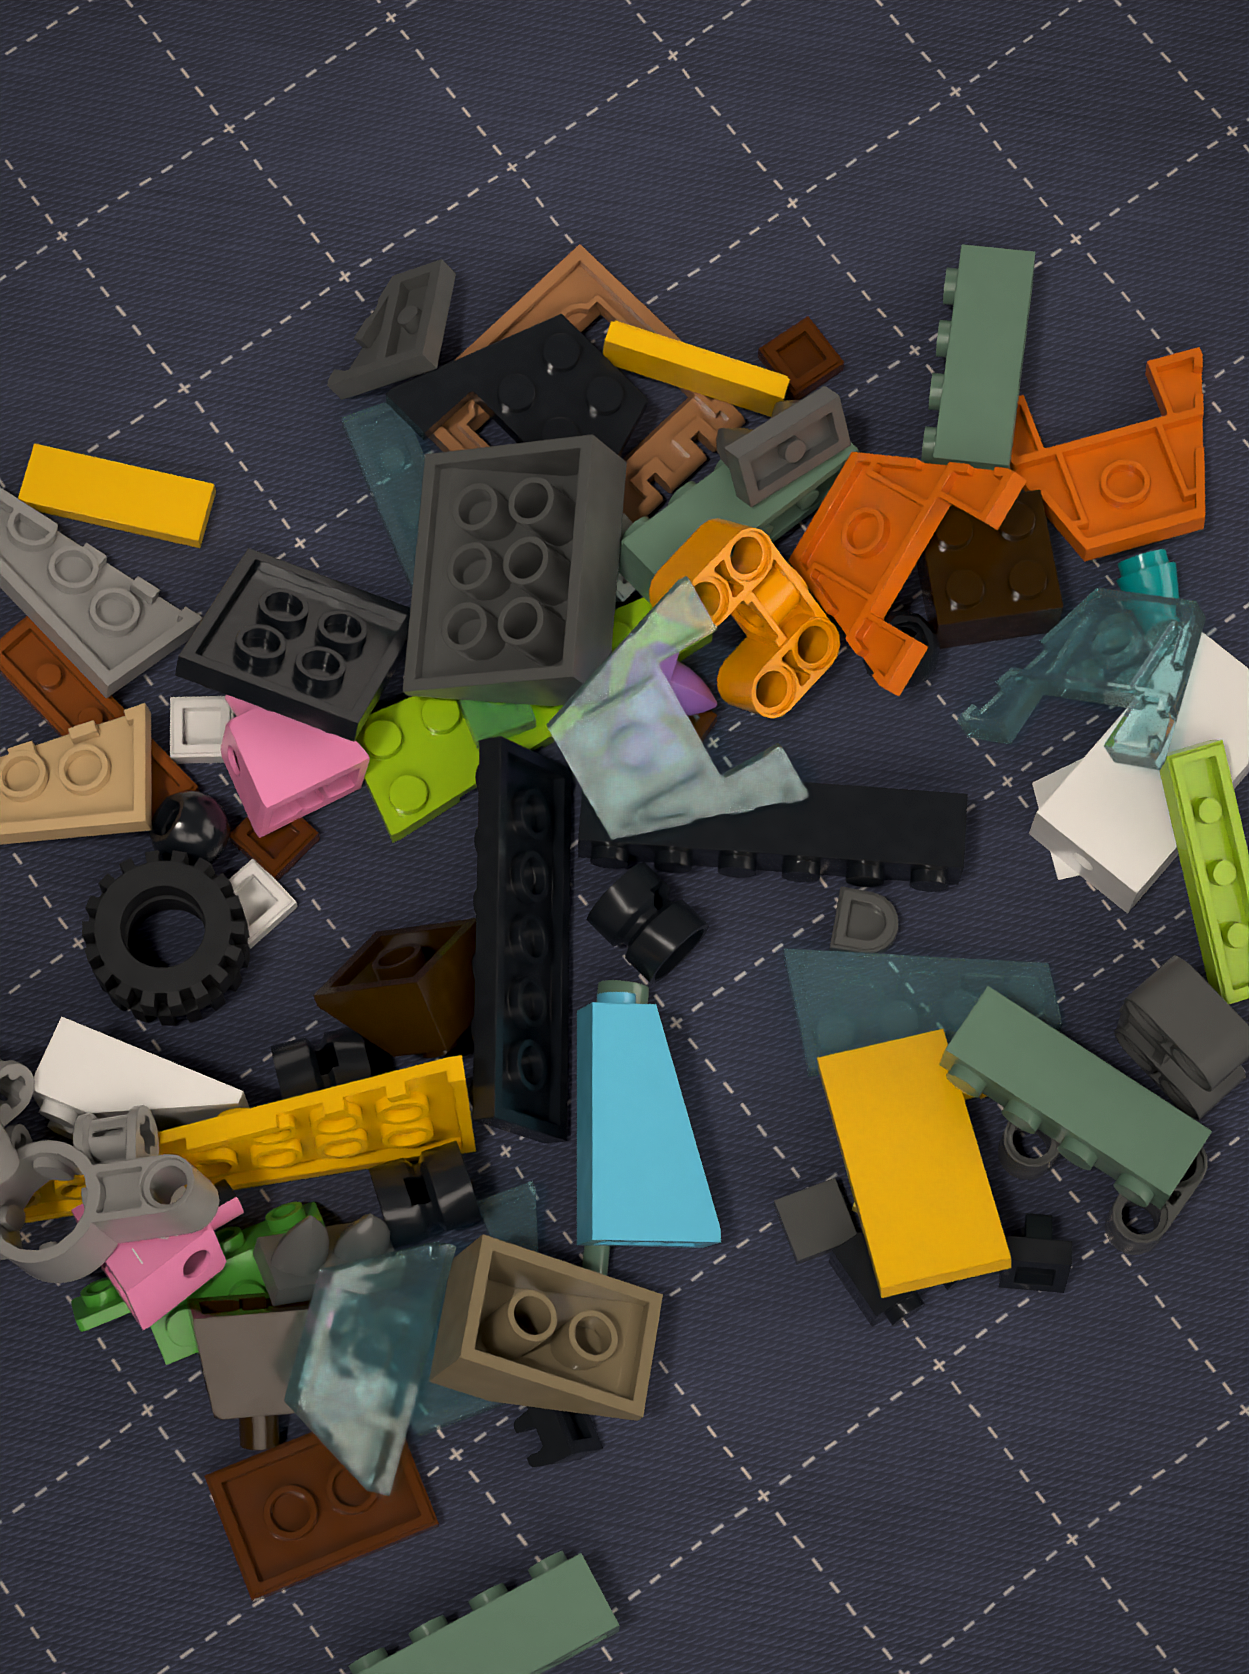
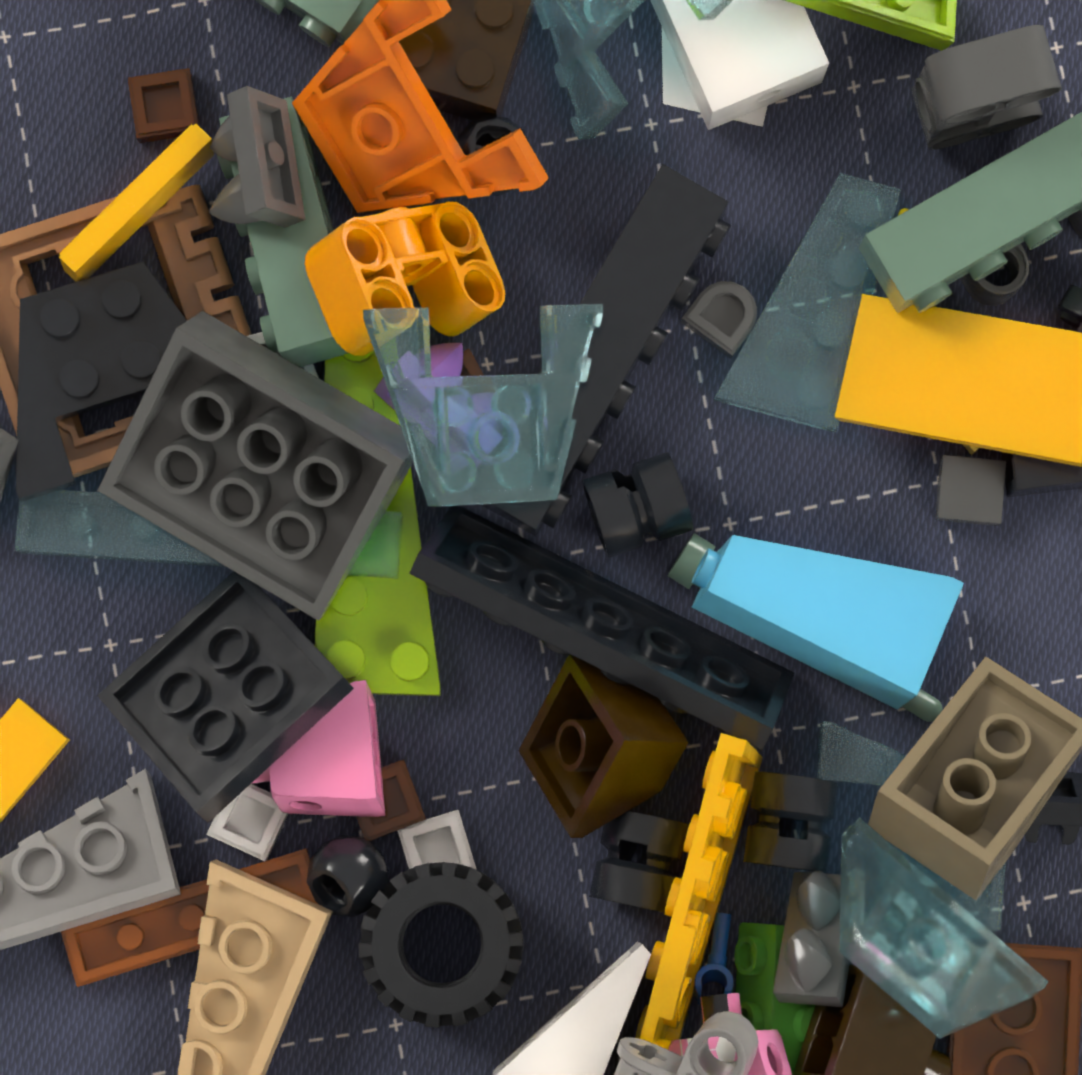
camera: 65 degrees left, 10 degrees up
(262, 1194) = (717, 959): none -> blue hand

